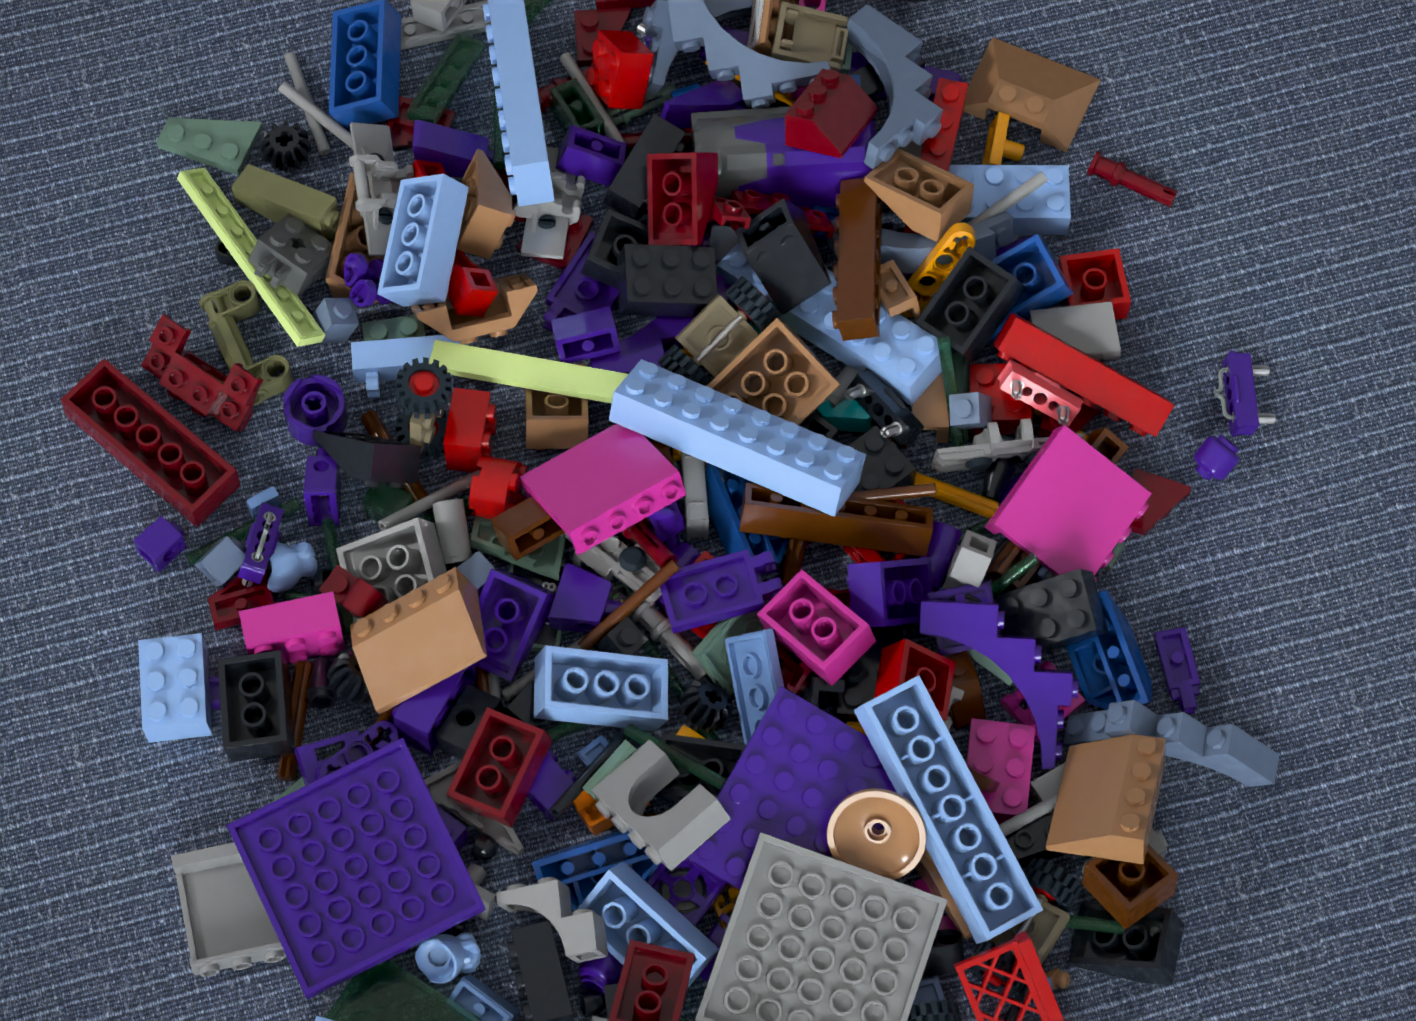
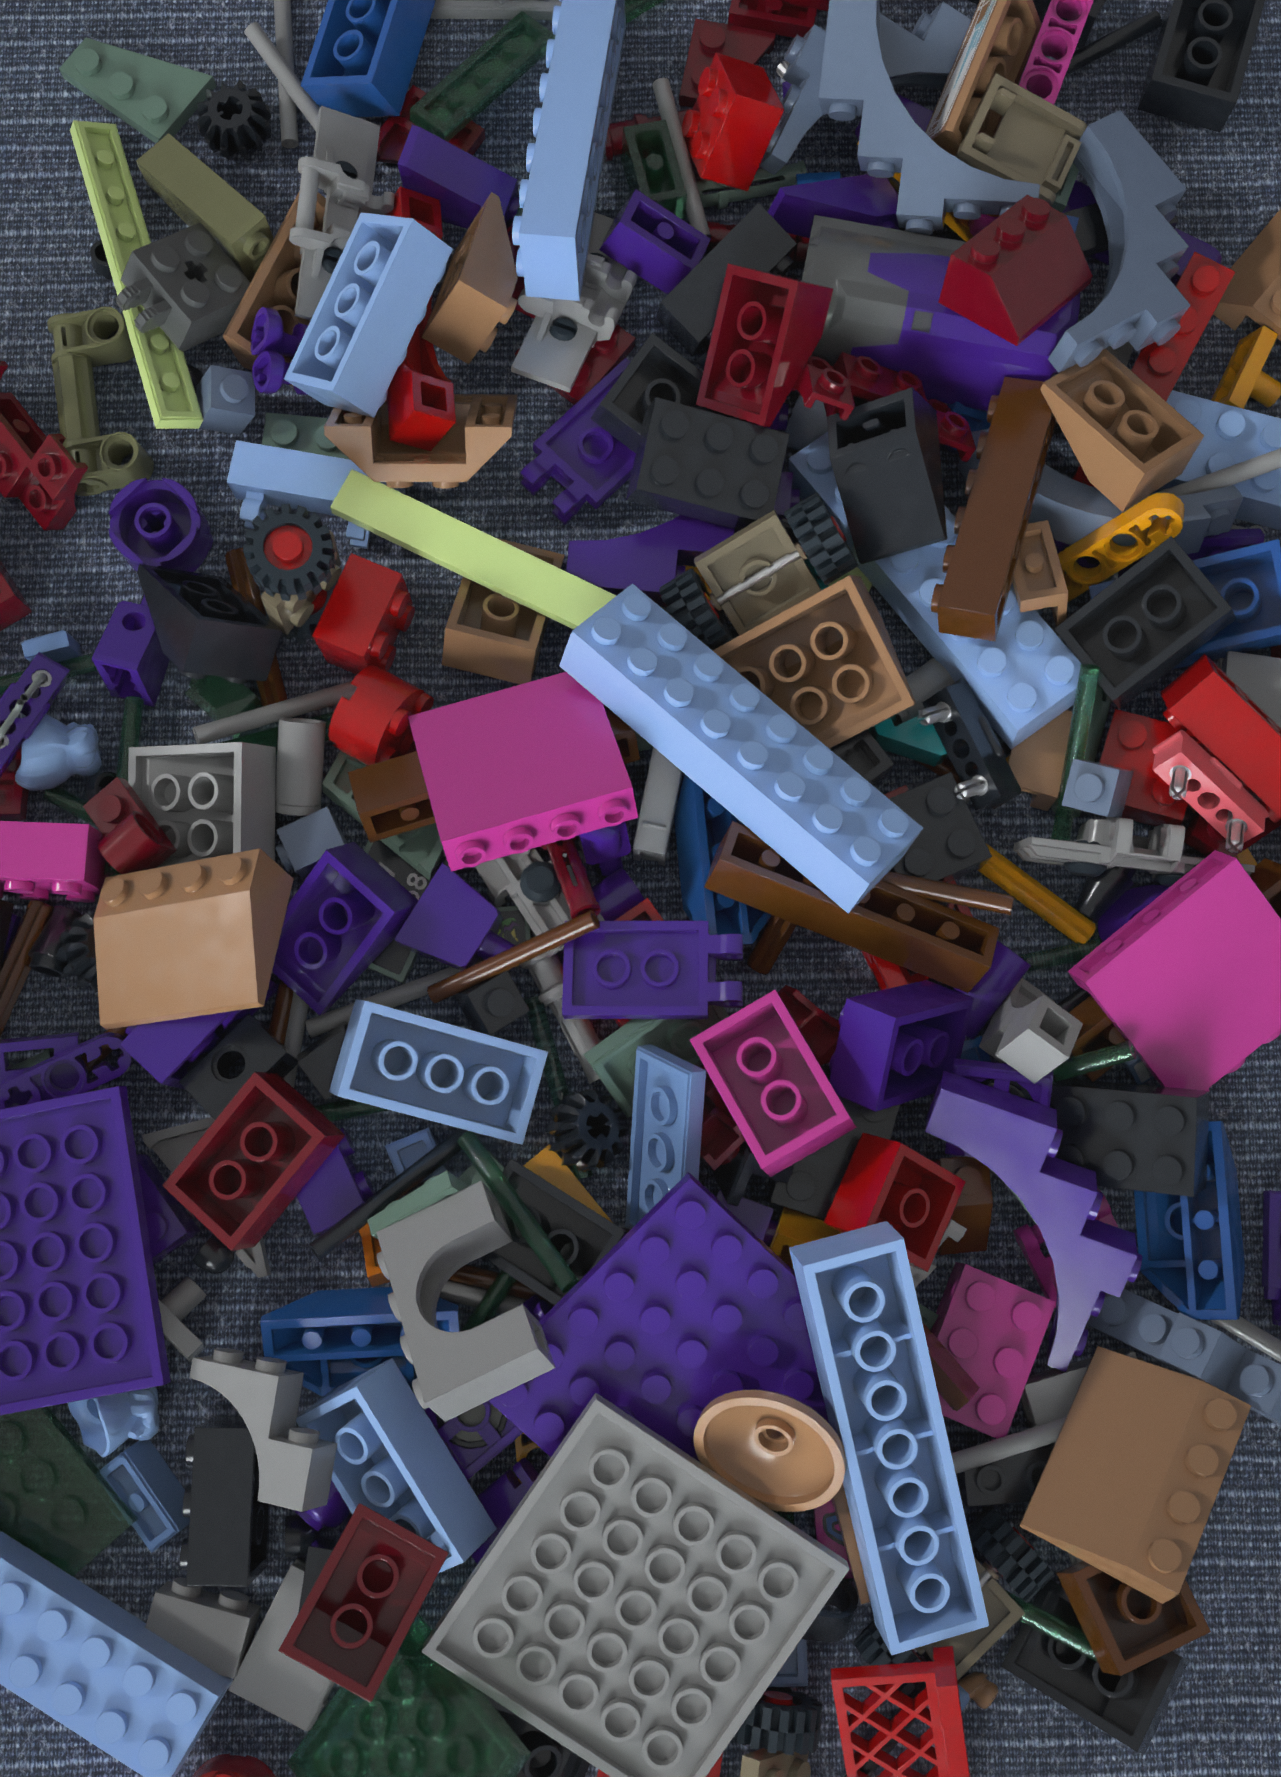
camera: 15 degrees right, 15 degrees up
(585, 335) = (568, 518): dark purple brick -> none

